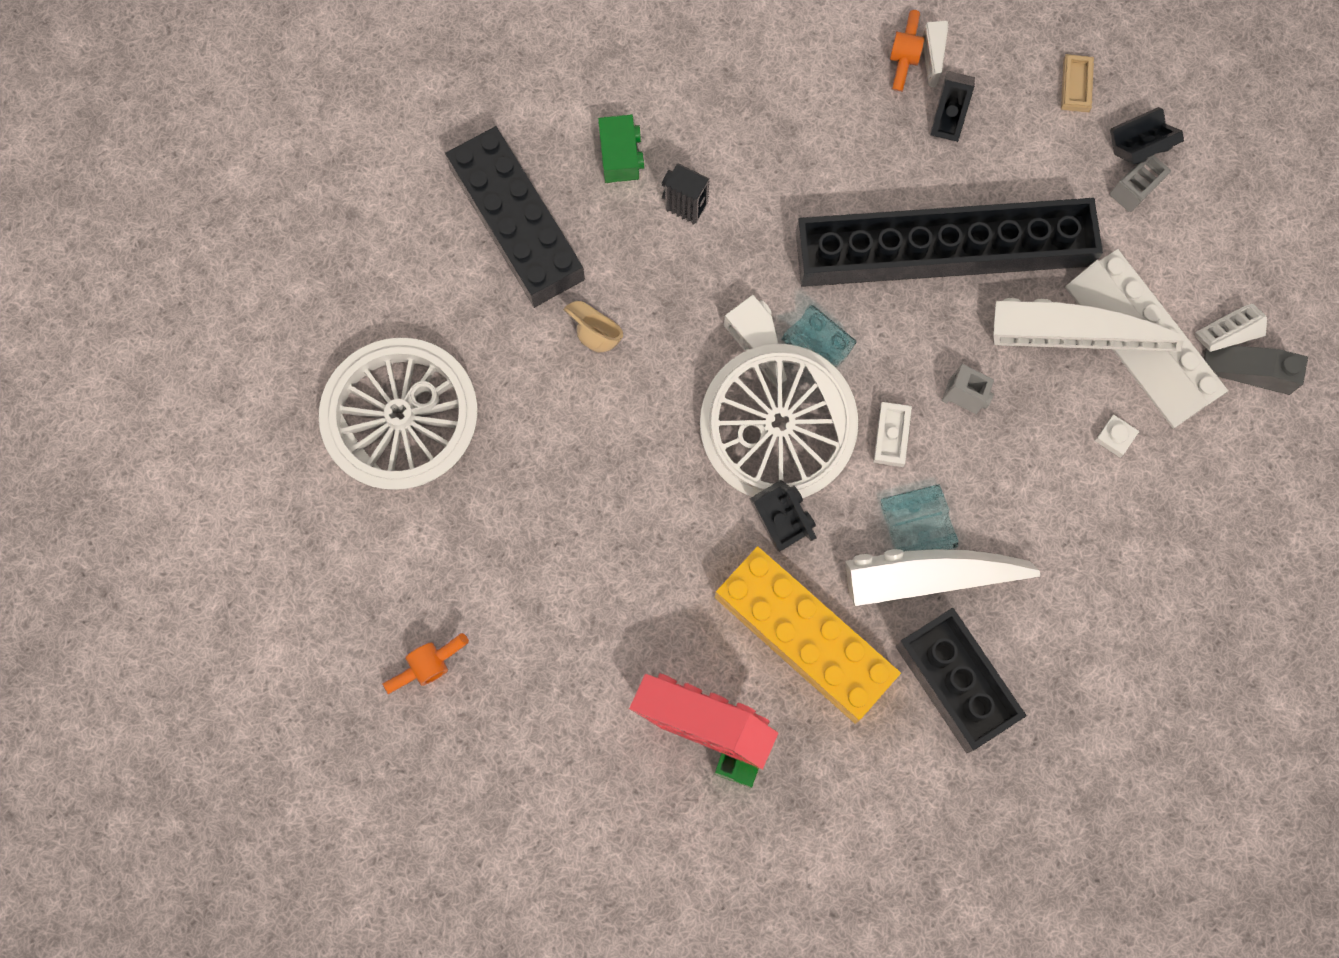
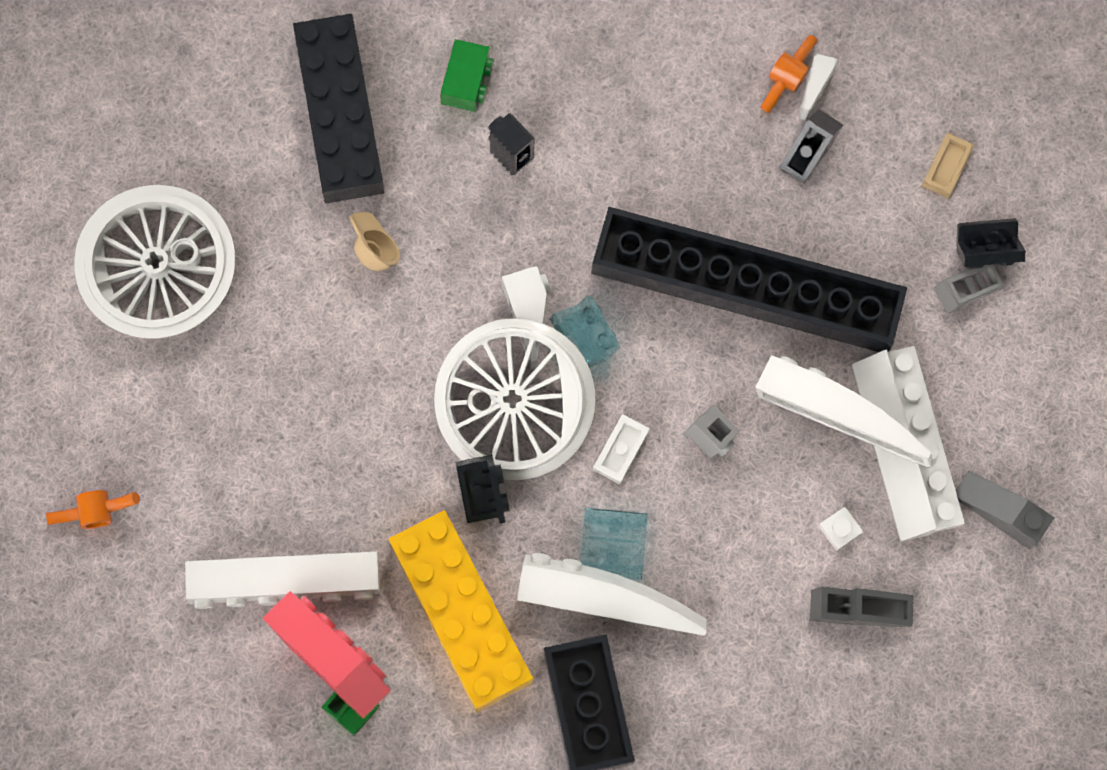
camera: 15 degrees right, 0 degrees up
(626, 665) = (273, 577): none -> white brick
(1165, 500) = (861, 607): none -> dark grey slope
(1234, 328) = (1002, 465): white slope -> none

